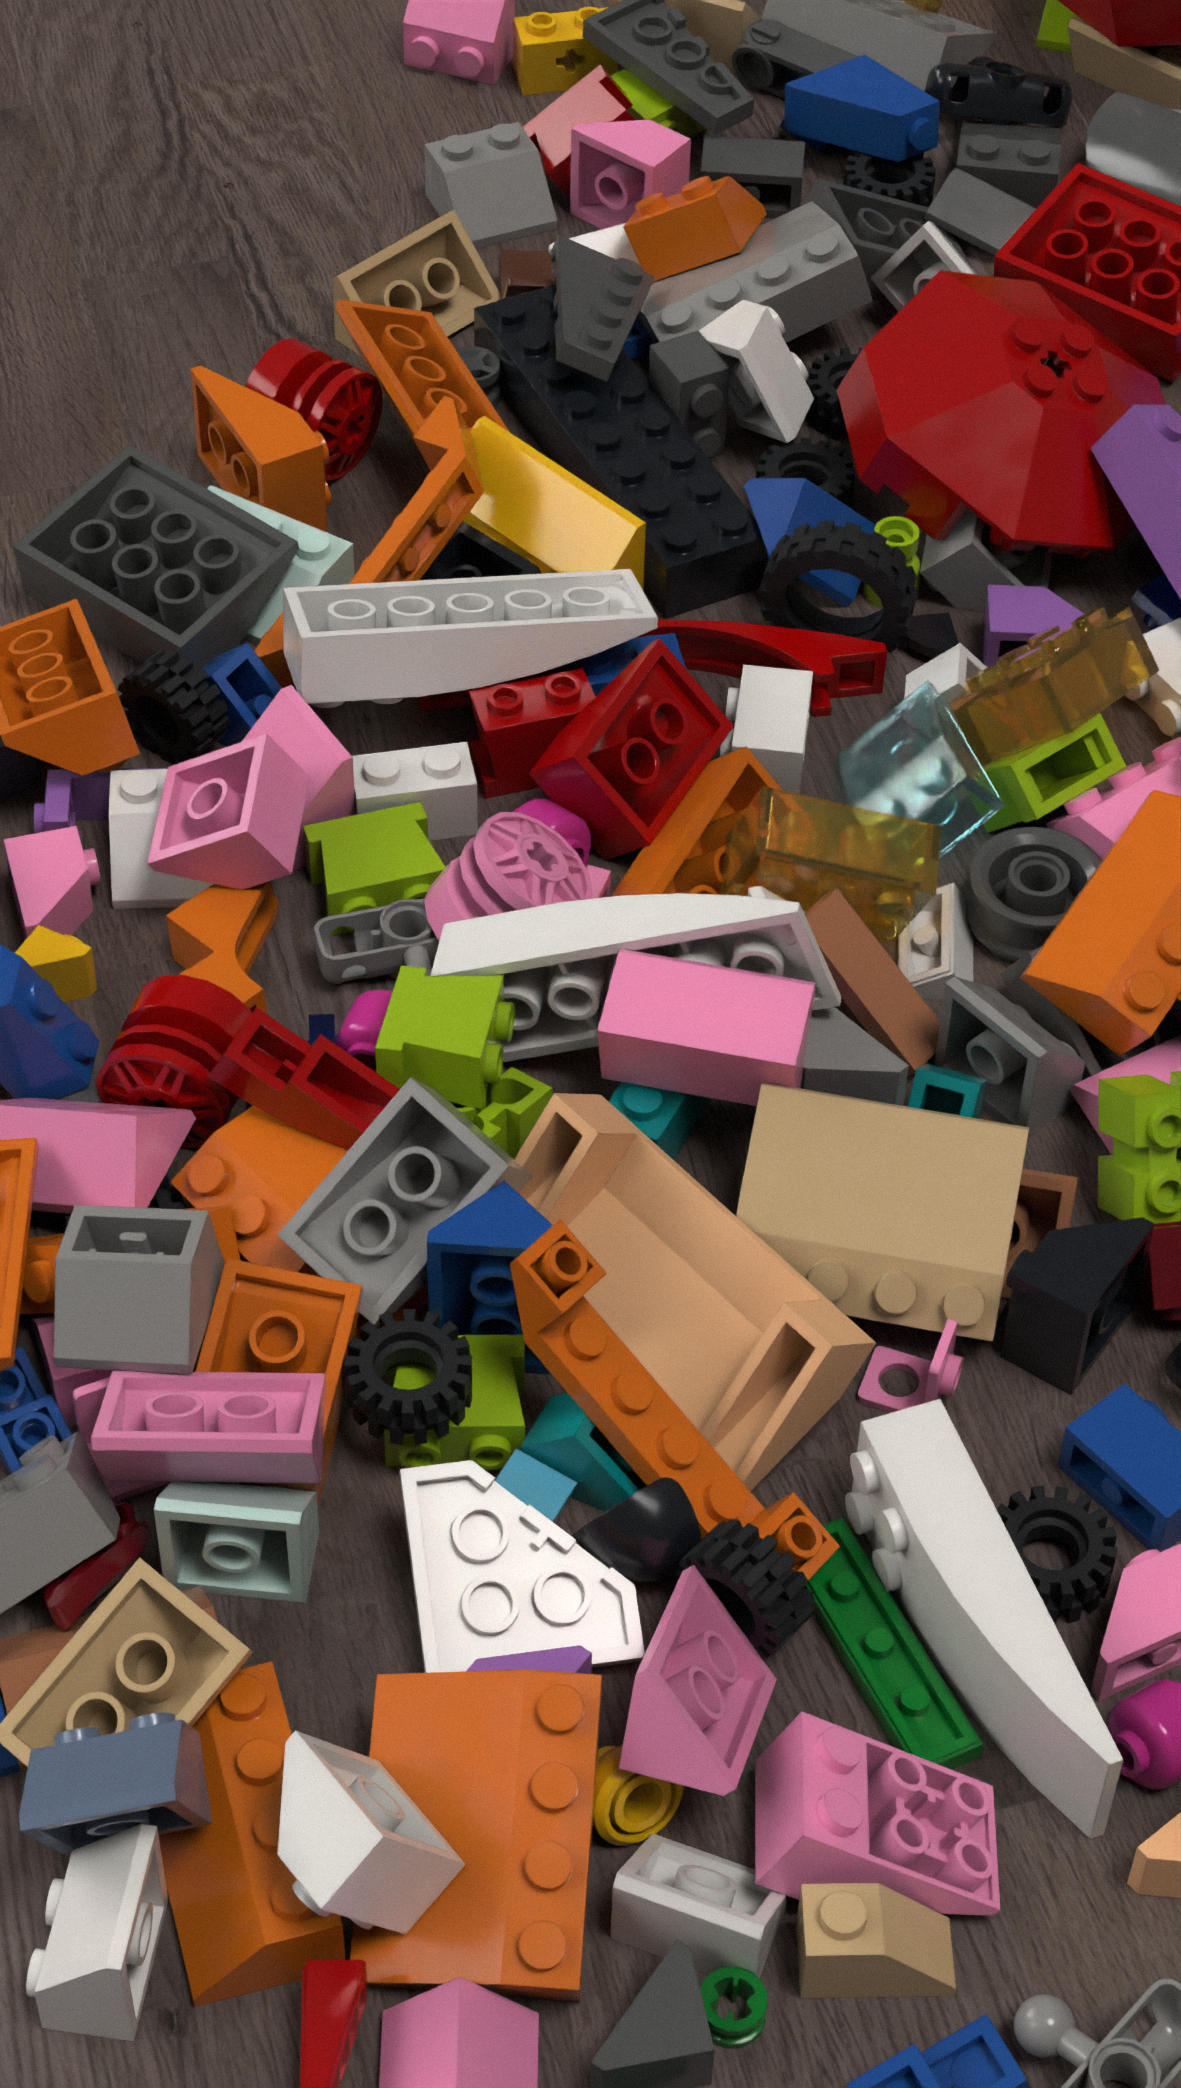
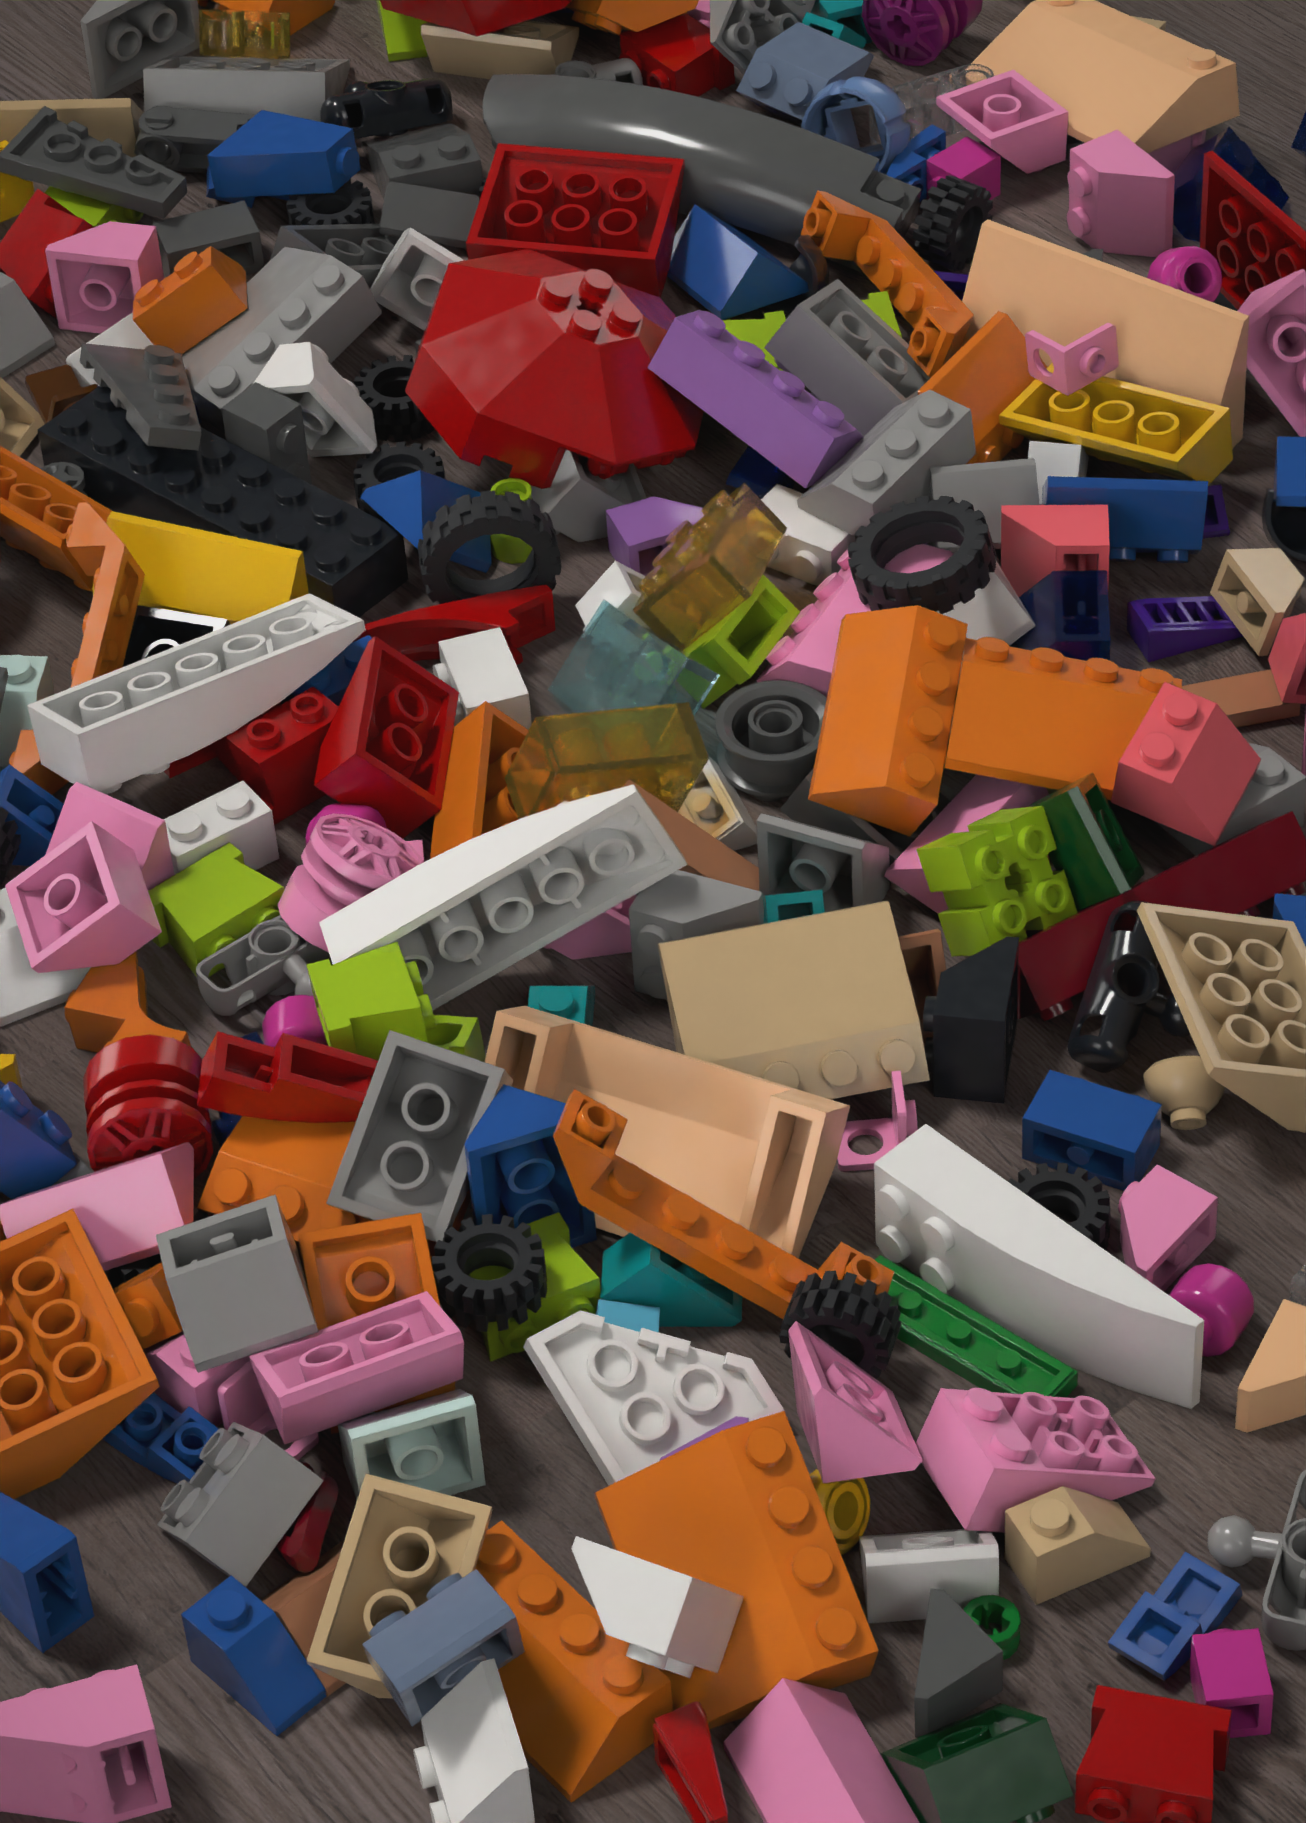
camera: 20 degrees left, 5 degrees down
(644, 1533) = (742, 1316): black helmet -> none
(703, 1027) = (589, 920): bright pink slope -> none
(930, 634) = (578, 570): black tile -> none

